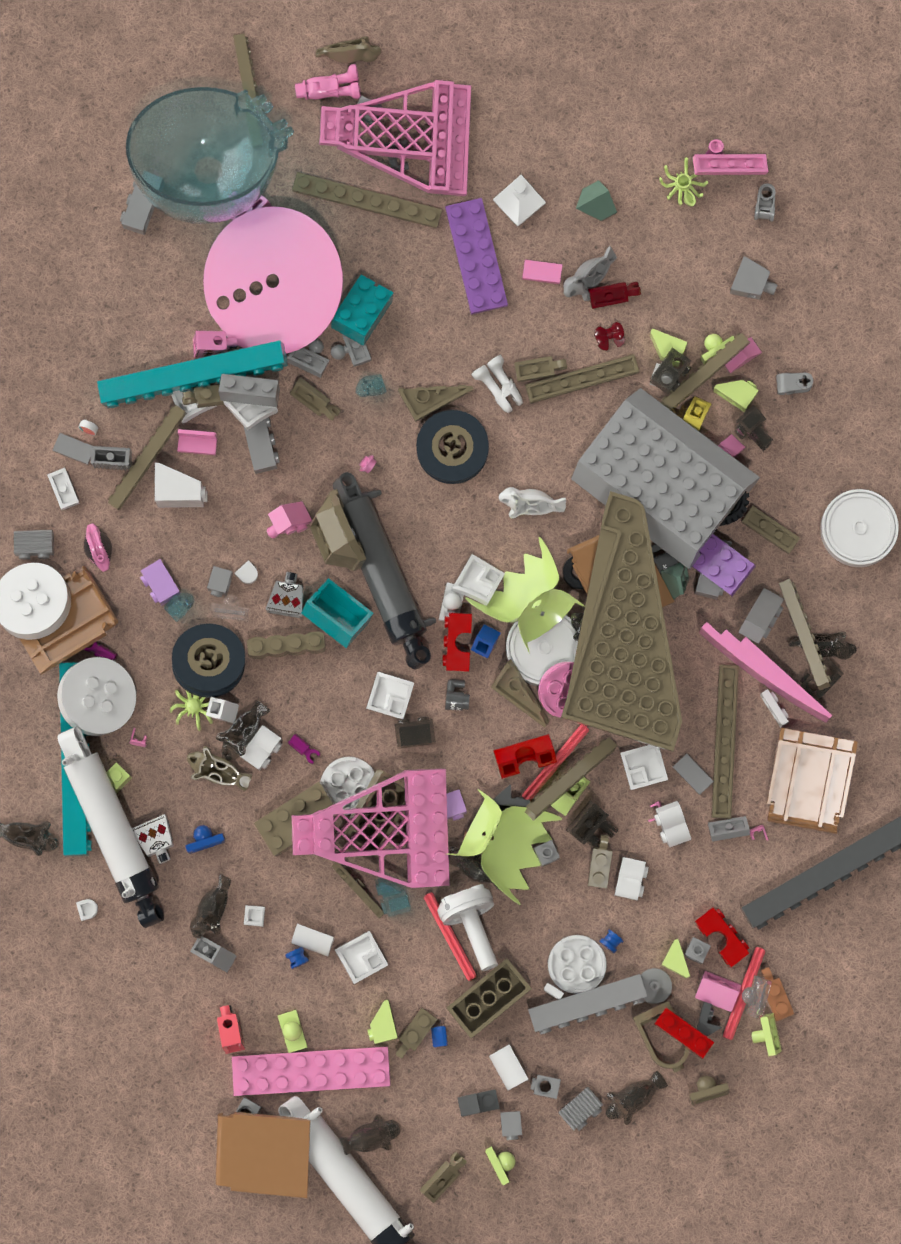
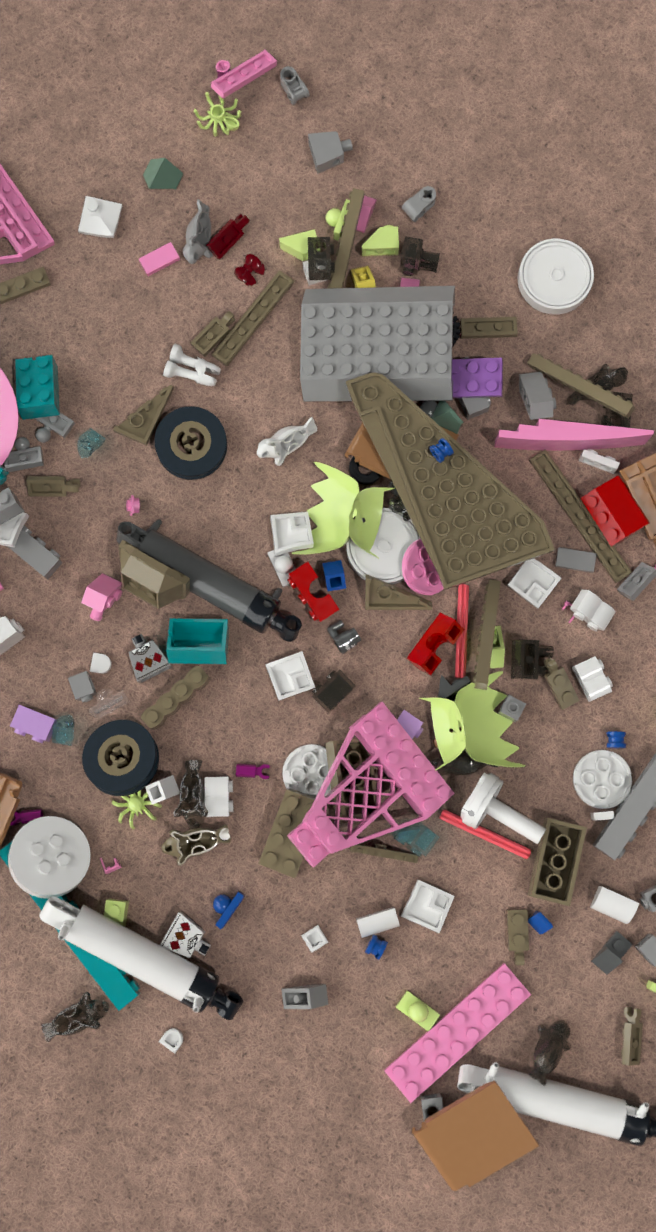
camera: 40 degrees left, 0 degrees up
(211, 909) = (275, 961): clear smoke animal -> none
(230, 1037) = (375, 1055): coral torso -> none
(383, 1025) = (488, 949): yellowish green slope -> none
(476, 256) = (98, 283): medium lavender plate -> none
(642, 604) = (441, 450): none -> blue wheel
(753, 757) = (615, 510): none -> red slope

